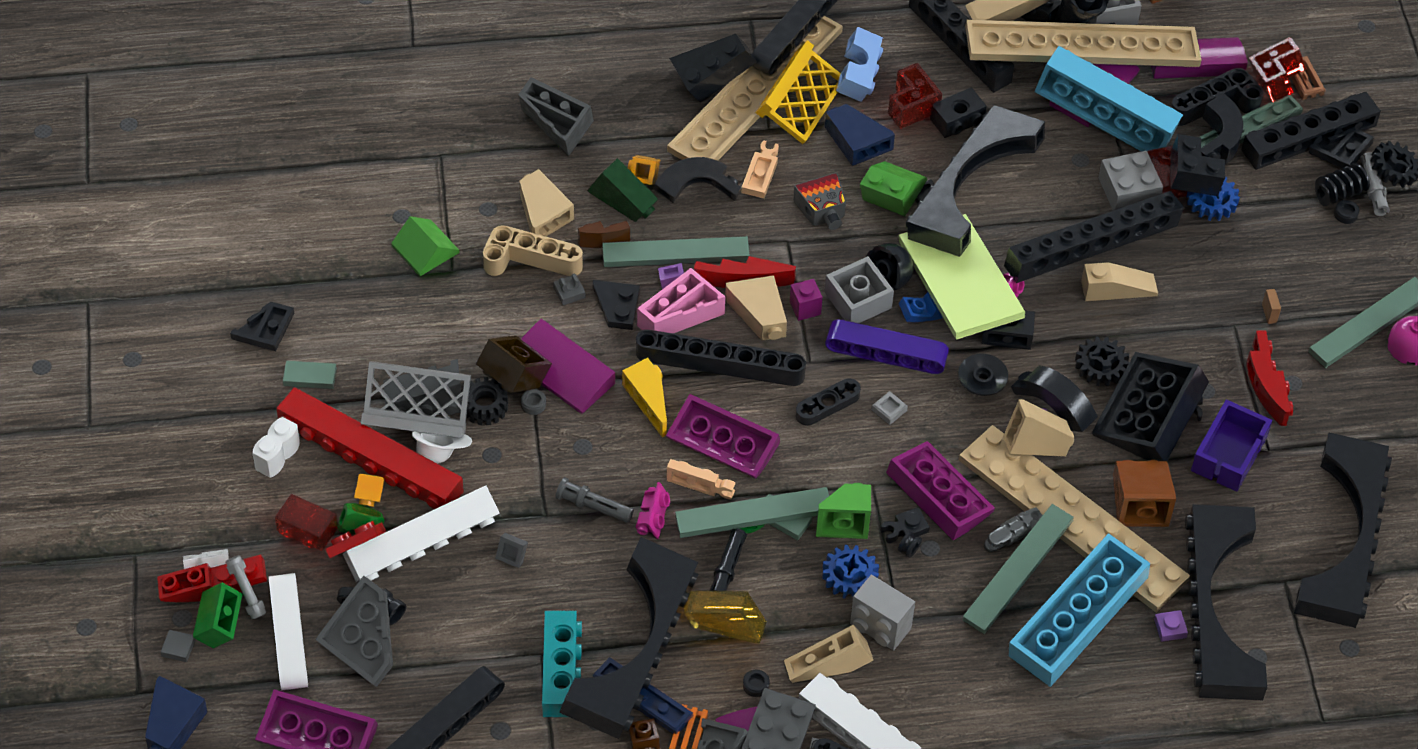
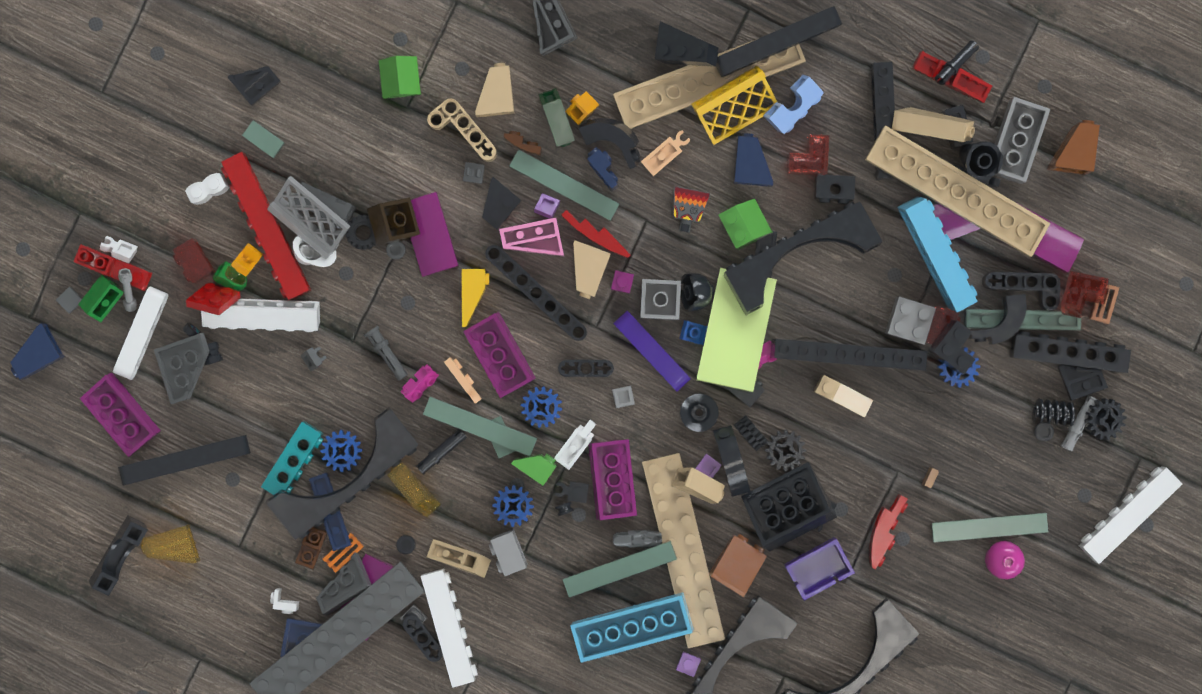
camera: 35 degrees right, 35 degrees up
(601, 617) = (335, 444): none -> blue gear
(708, 209) = (601, 164): none -> dark blue plate
(808, 460) = (533, 396): none -> blue gear
(875, 474) = (575, 445): none -> white hinge
(1054, 355) = (750, 433): none -> black tyre

